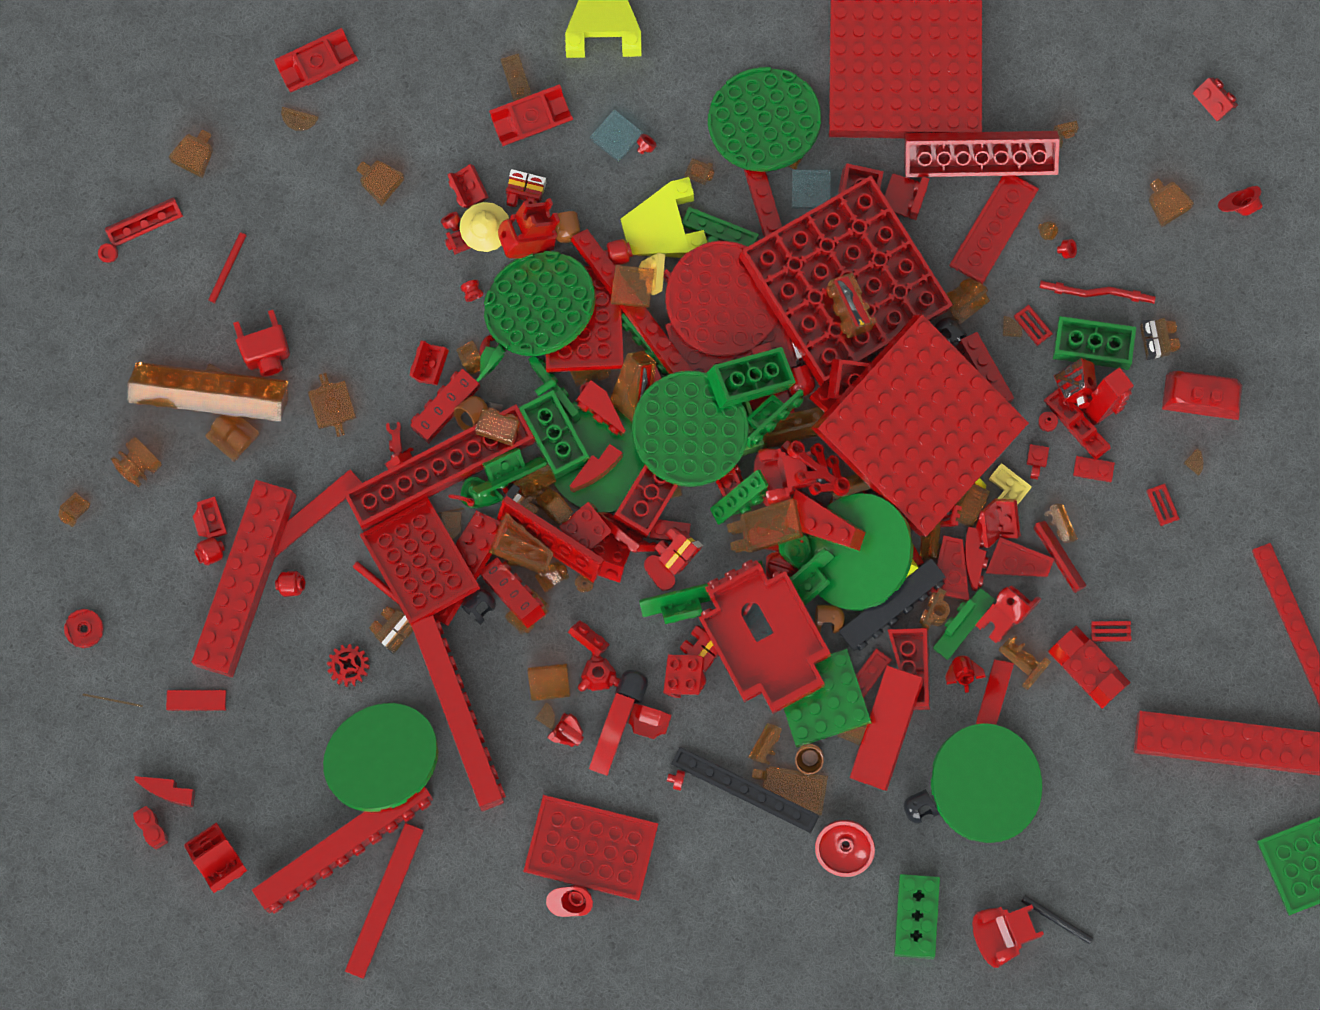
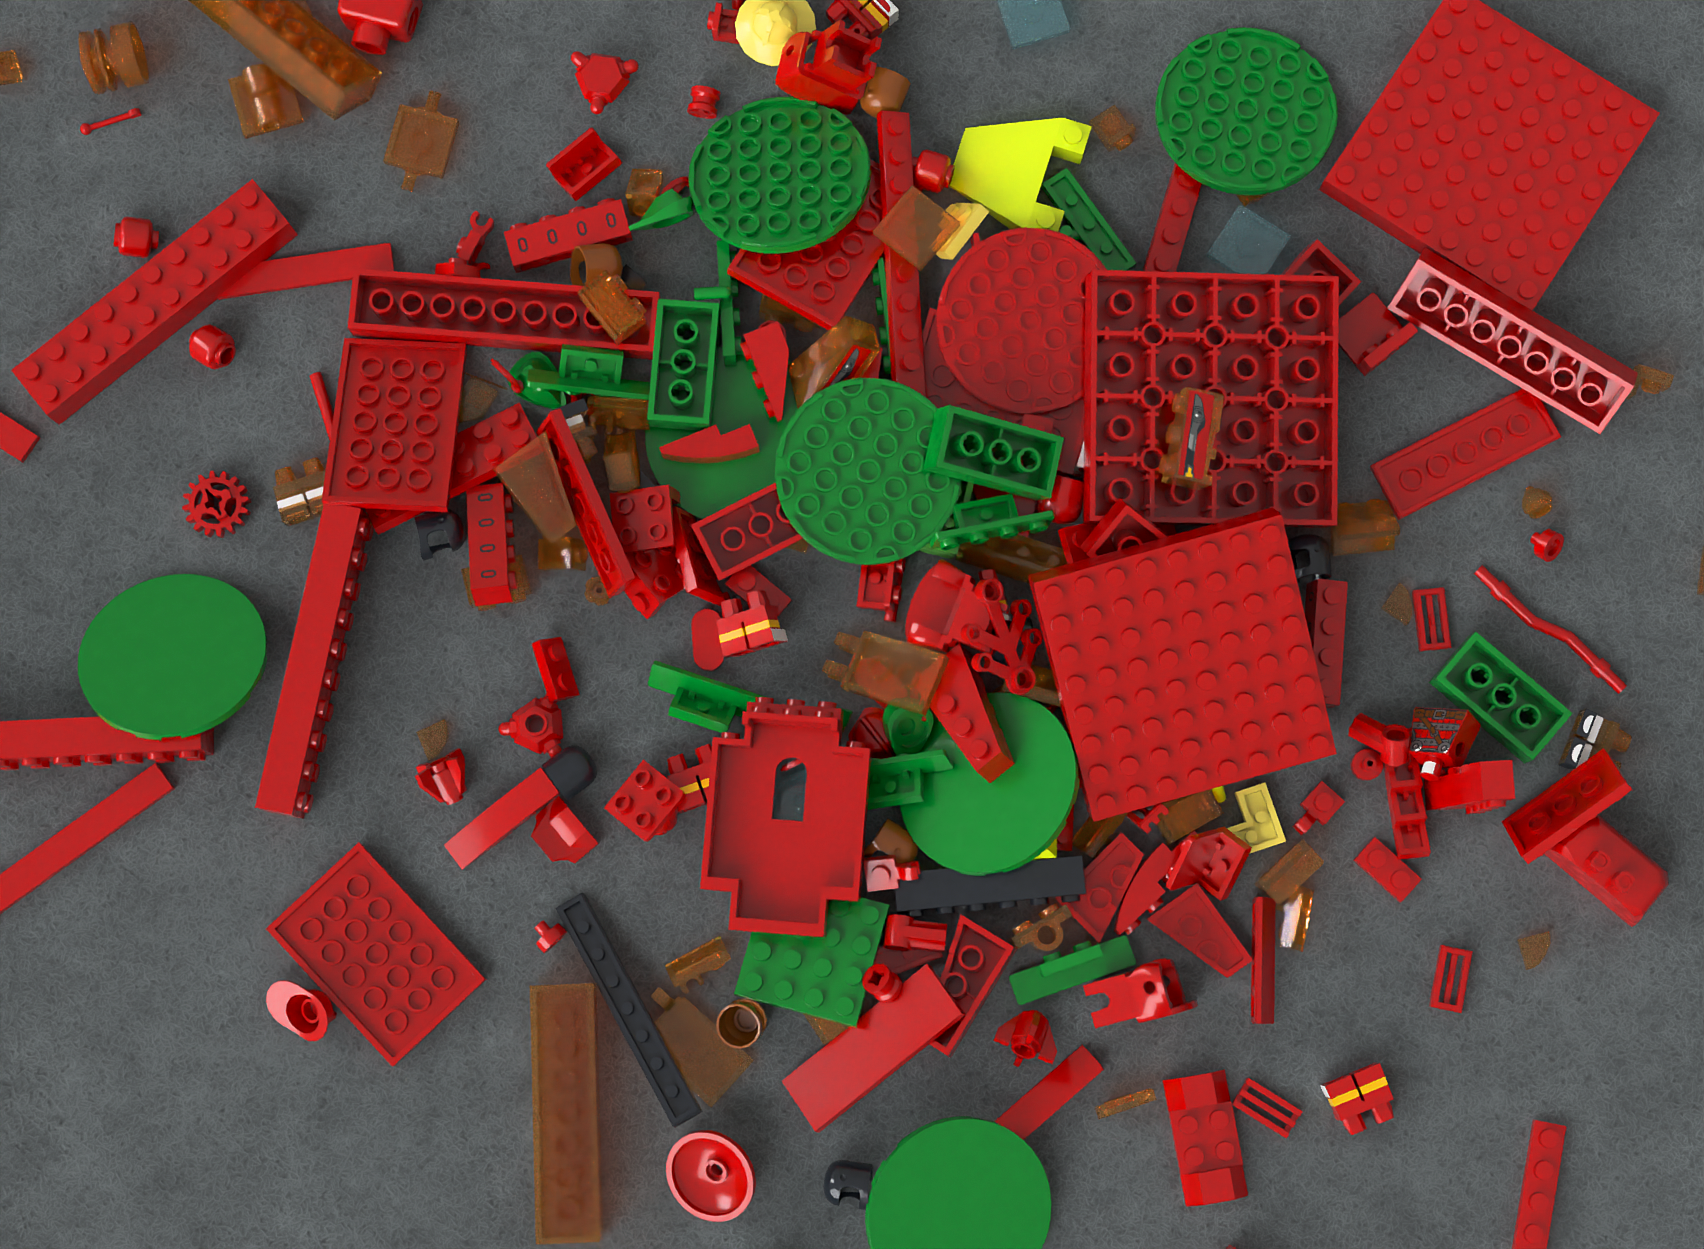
camera: 30 degrees right, 5 degrees up
(142, 510) = (87, 128): none -> red hinge
(209, 519) = (165, 194): red slope -> none
(409, 310) = (602, 77): none -> red rock
(548, 682) = (464, 693): clear orange bracket -> none
(646, 144) = (1064, 47): red tile -> none
(741, 498) = (878, 609): green bracket -> none
(747, 864) = (566, 1113): none -> clear orange brick
(834, 633) = (885, 872): none -> plate
(866, 658) = (906, 933): none -> red piece
(870, 690) = (882, 983): none -> red wheel
(1019, 657) = (1117, 1062): clear orange plate -> none
(1044, 500) = (1289, 872): none -> clear orange bracket
(1051, 400) = (1389, 740): none -> red piece
(1152, 593) = (1358, 1093): none -> red hips
(1163, 376) = (1566, 806): none -> red plate

